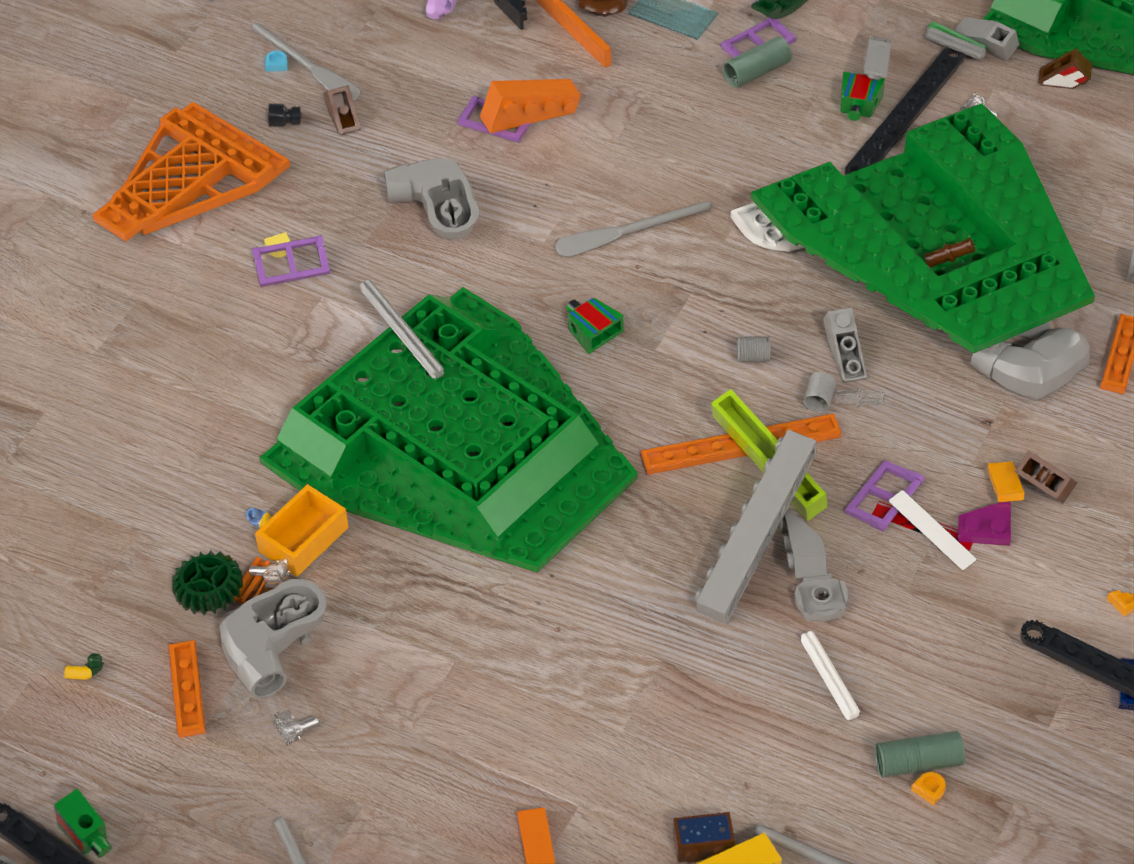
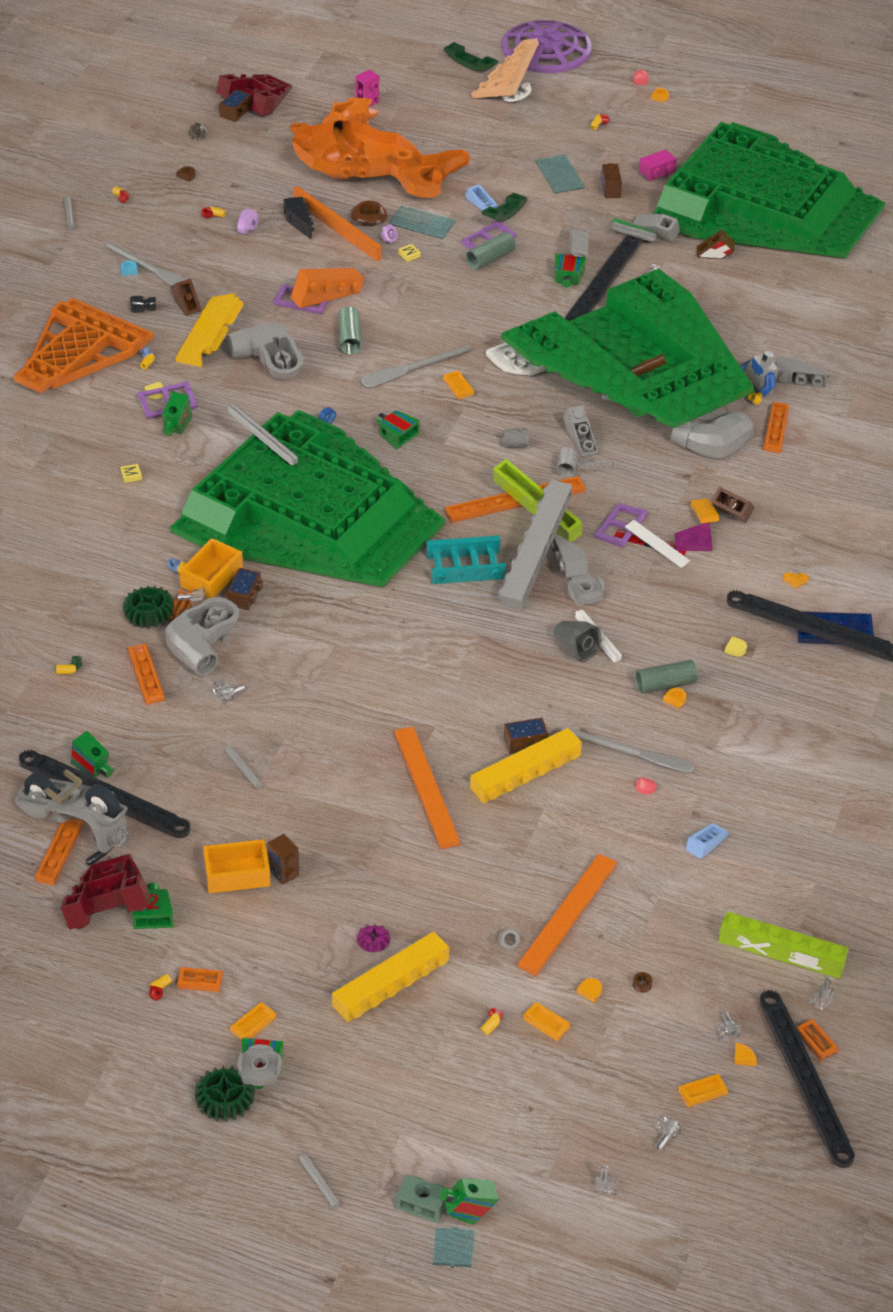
camera: 10 degrees left, 5 degrees down
(223, 369) = (131, 473): none -> light yellow tile
(277, 195) = (148, 357): none -> yellow arm
(297, 285) = (176, 414): none -> green torso
(343, 563) = (245, 588): none -> brick
(365, 157) = (210, 329): none -> yellow slope
(501, 298) = (327, 415): none -> blue tile
(550, 170) = (349, 330): none -> sand green piece
(625, 30) = (389, 234): none -> lavender piece
(648, 58) = (409, 253): none -> light yellow tile
(657, 517) = (465, 547): none -> teal fence
(687, 260) = (458, 384): none -> light orange tile
(799, 682) = (578, 638): none -> dark grey cone
(1027, 709) = (736, 647): none -> light yellow tile
(1107, 273) = (762, 375): none -> torso

